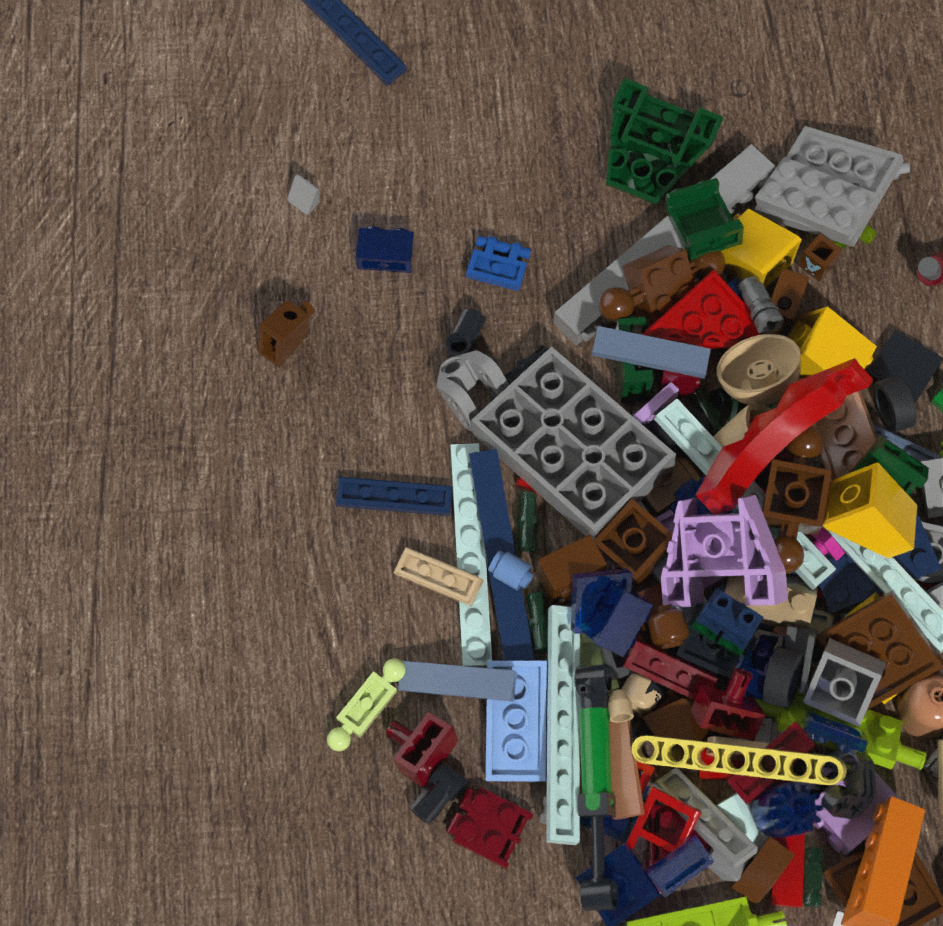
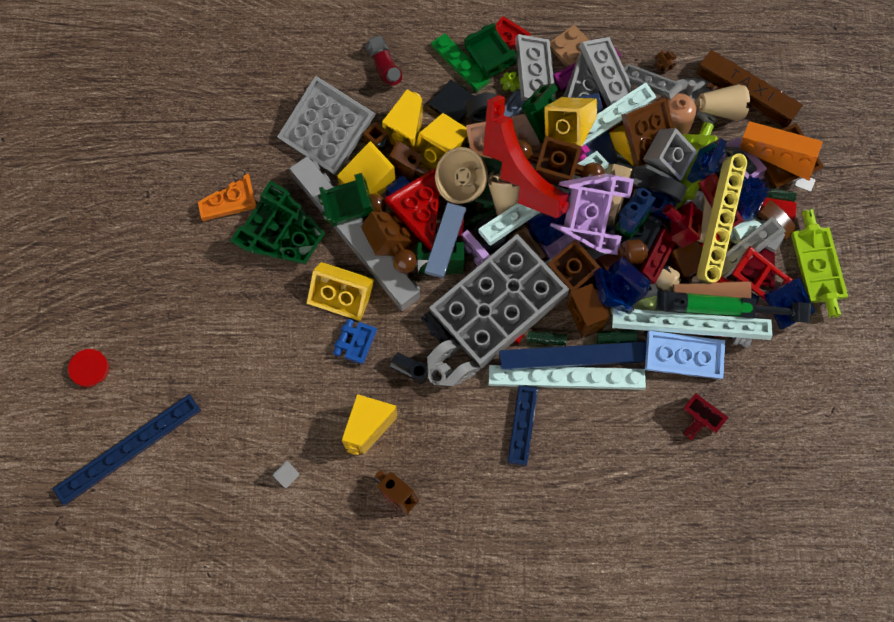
camera: 85 degrees left, 0 degrees up
(366, 704) = (671, 452): yellowish green plate -> none
(374, 282) = (367, 423): none -> yellow slope
(385, 249) = (336, 416): clear blue brick -> none
(438, 576) = (584, 398): tan tile -> none
(443, 787) = (728, 405): black piece -> none
(458, 681) = (659, 390): sand blue tile -> none
(488, 825) = (749, 381): dark red plate -> none
(511, 570) = (586, 347): medium blue brick -> none
(572, 234) = (339, 291): none -> yellow slope
(619, 707) = (684, 285): tan hose -> none
(680, 866) = (780, 264): clear blue tile -> none
(695, 78) = (231, 200): none -> orange wing
(763, 311) = (412, 173): dark grey axle -> none
(817, 199) = (338, 132): light grey plate -> none
(855, 292) = (405, 120): none -> yellow slope

